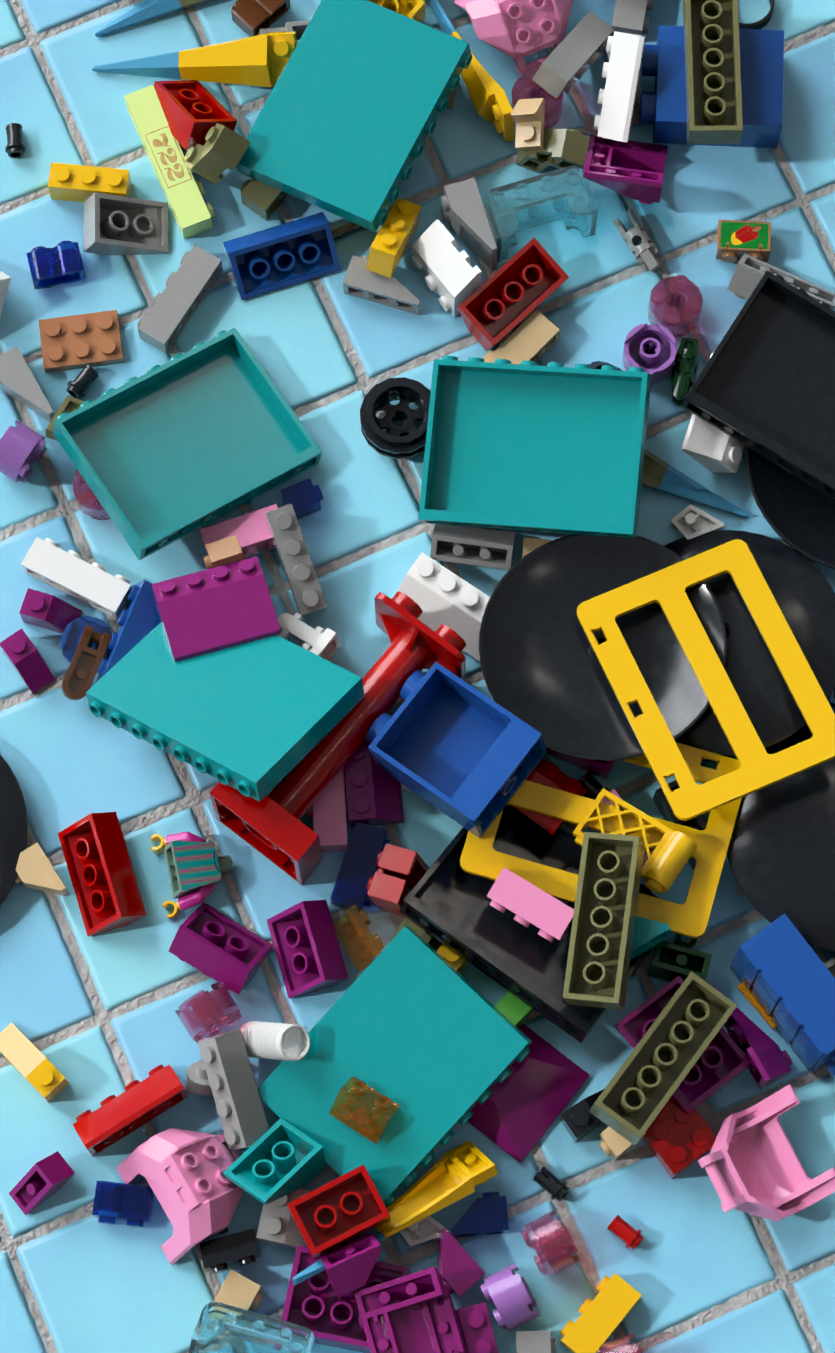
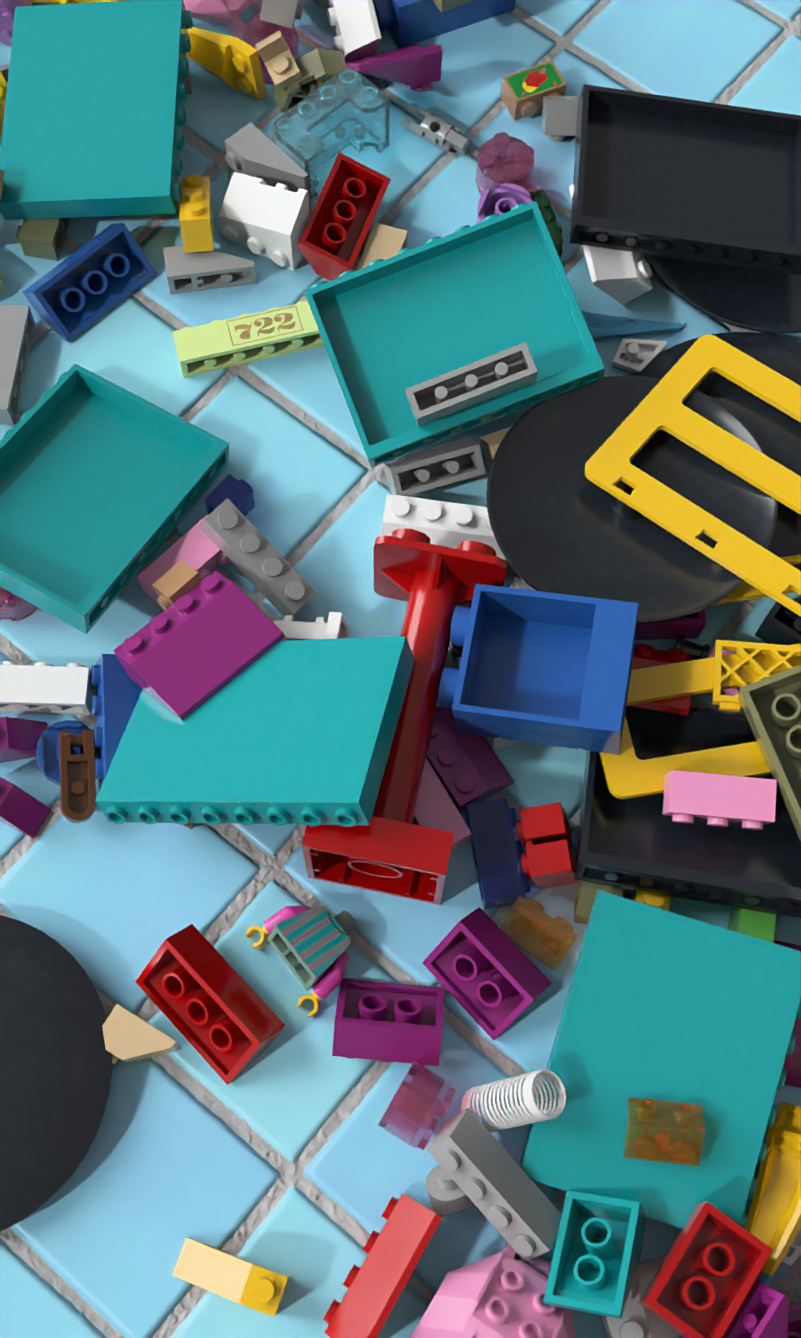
camera: 30 degrees left, 5 degrees down
(374, 362) = (246, 339): none -> yellowish green brick
(402, 440) = (295, 394): black wheel -> none
(519, 500) = (472, 384): none -> light grey brick

